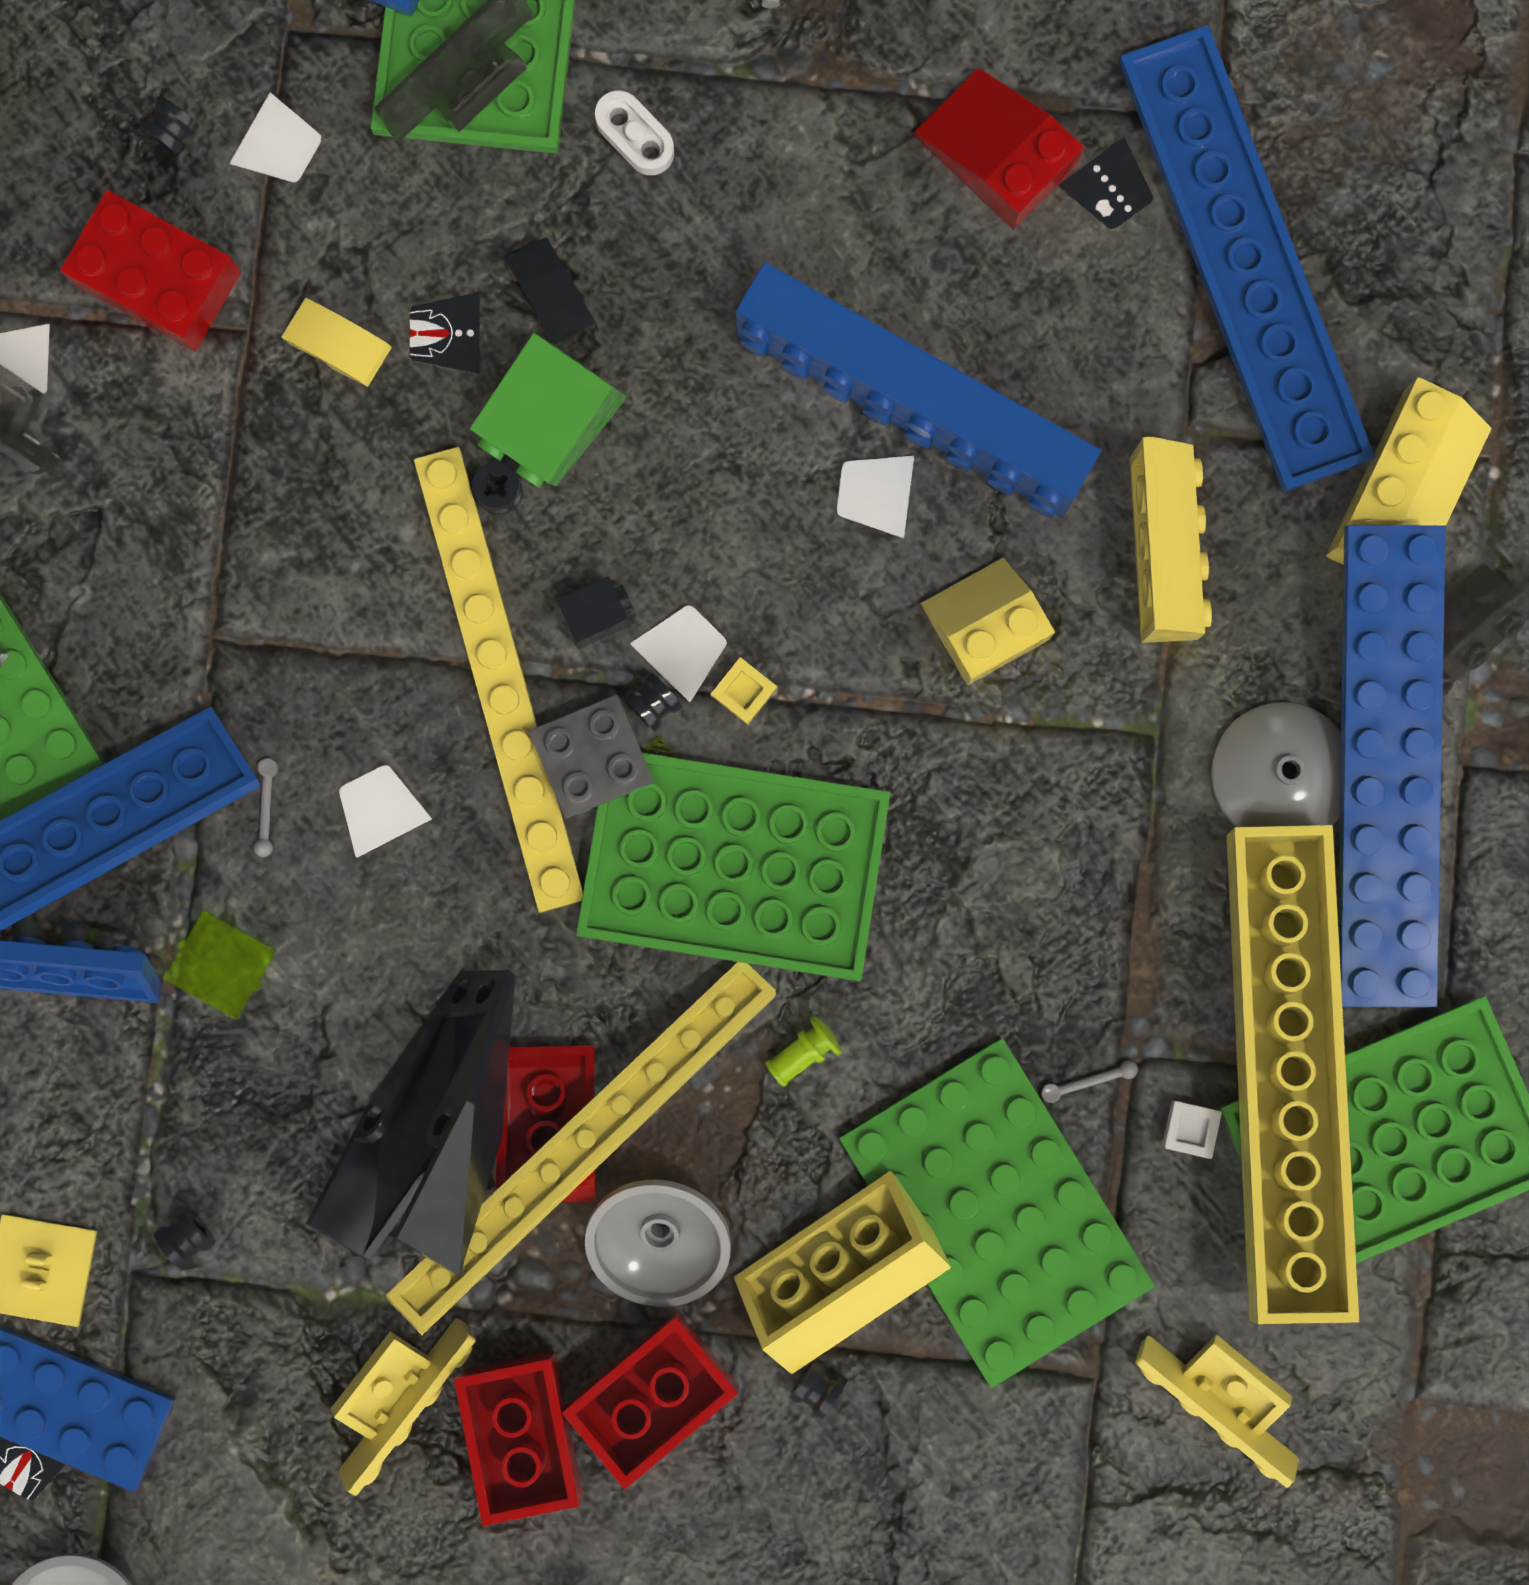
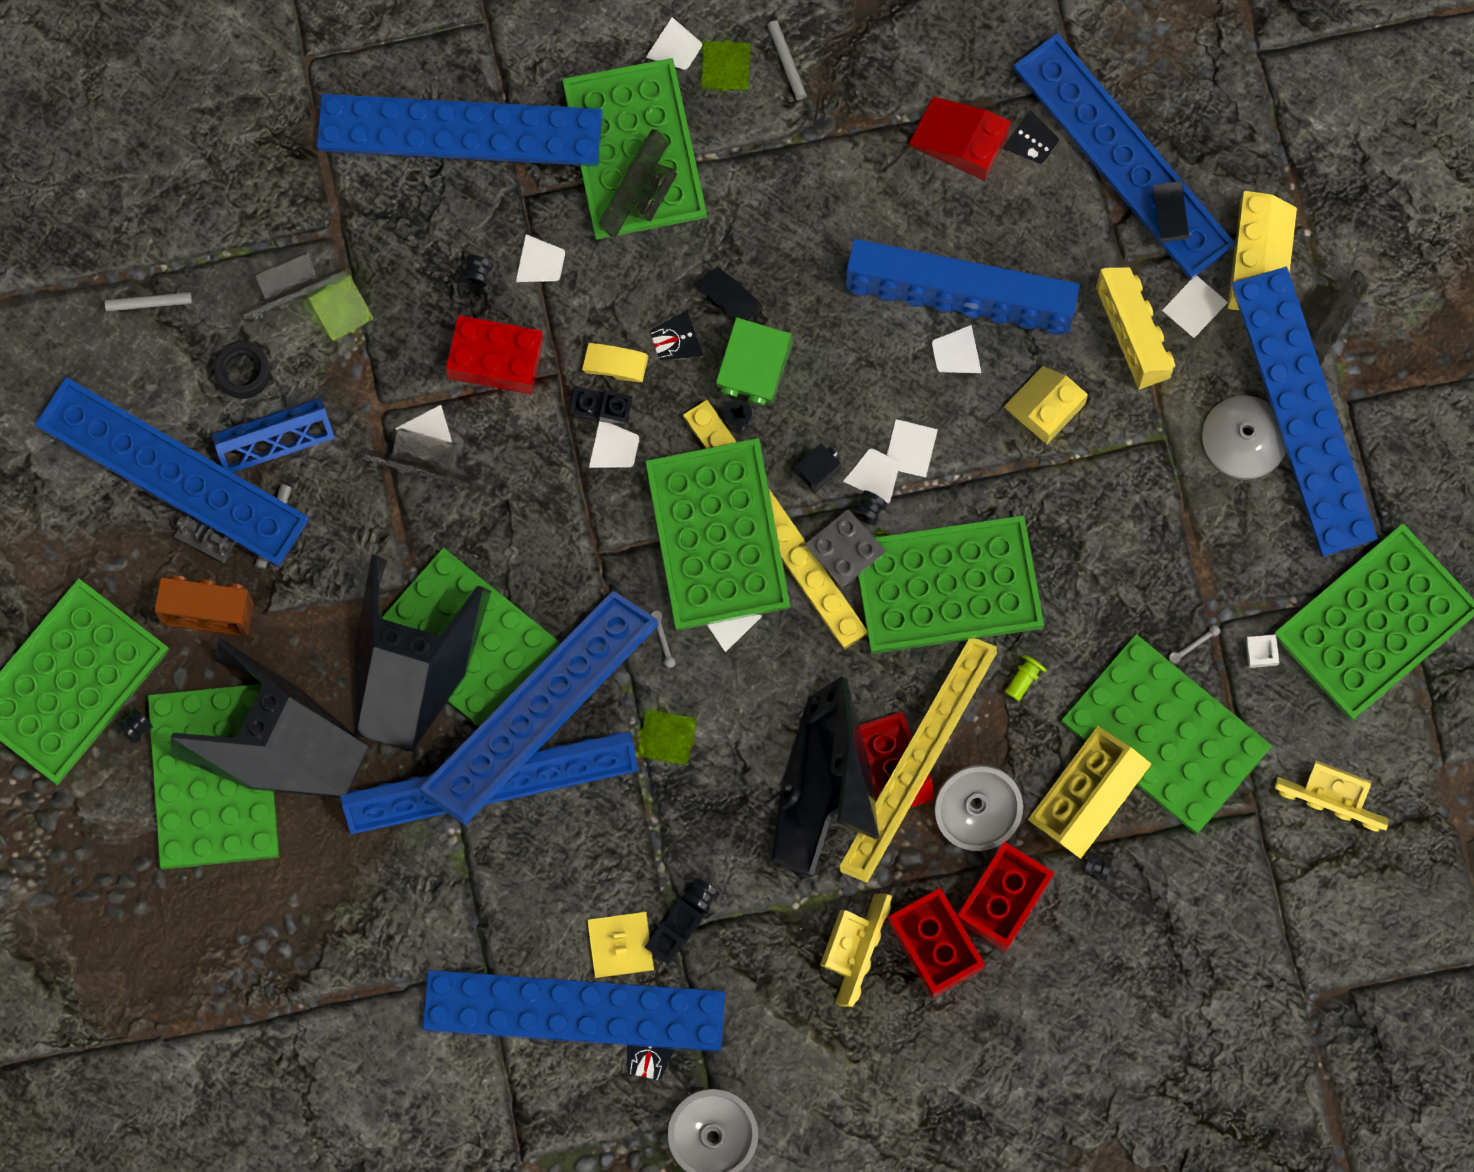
camera: 20 degrees left, 10 degrees down
(124, 1281) = (675, 931): none -> black slope
(290, 403) = (599, 406): none -> black slope
(293, 475) = (613, 447): none -> white sticker
(400, 670) = (718, 534): none -> bright green plate
(636, 134) = (750, 191): white plate -> none
(743, 691) = (919, 486): light yellow plate -> none
(755, 621) = (912, 447): none -> white sticker
(1275, 536) = (1195, 306): none -> white sticker
(1290, 374) = (1171, 211): none -> black slope
(1291, 1076) = (1306, 596): light yellow brick -> none

